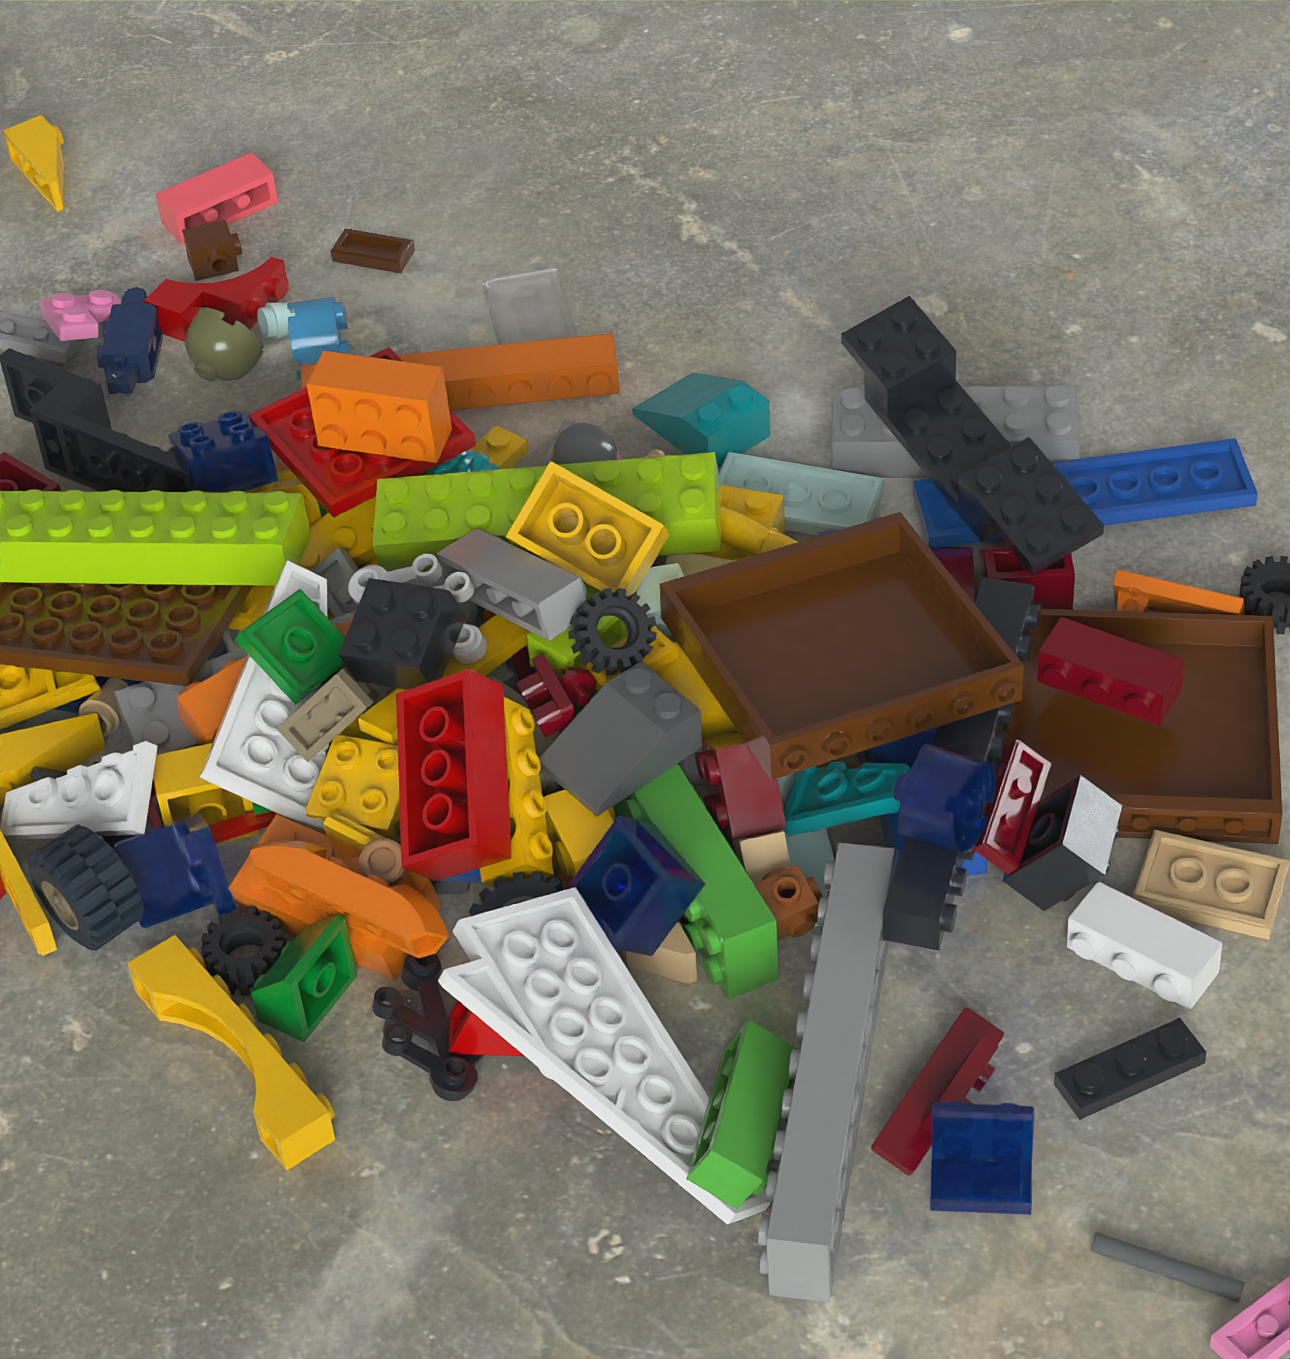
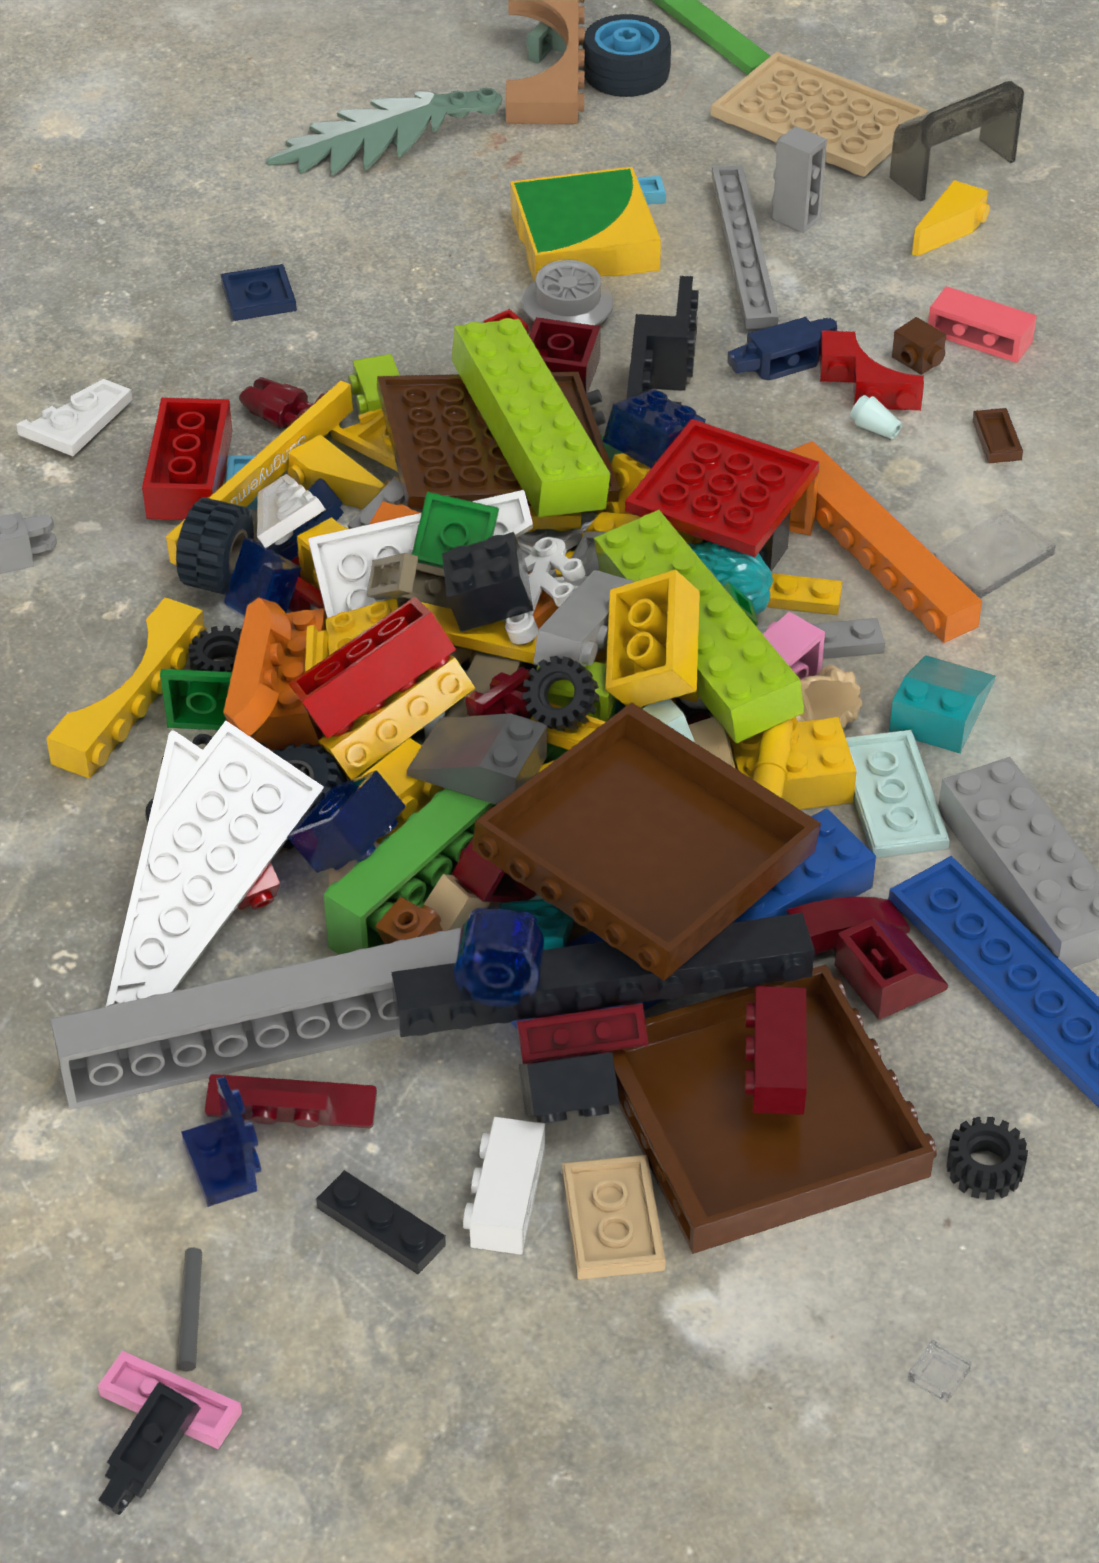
camera: 60 degrees right, 0 degrees up
(77, 316) = (786, 302): bright pink plate -> none
(220, 348) = (807, 393): olive cylinder -> none
(316, 329) = (852, 436): dark azure brick -> none
(379, 406) = (716, 472): orange brick -> none
(382, 859) = (291, 670): medium nougat tile -> none
(583, 444) = (785, 619): dark grey hair -> none
(742, 1116) = (149, 973): bright green brick -> none
(960, 450) = (964, 892): black bracket -> none
(1141, 593) = (917, 1056): orange hinge -> none

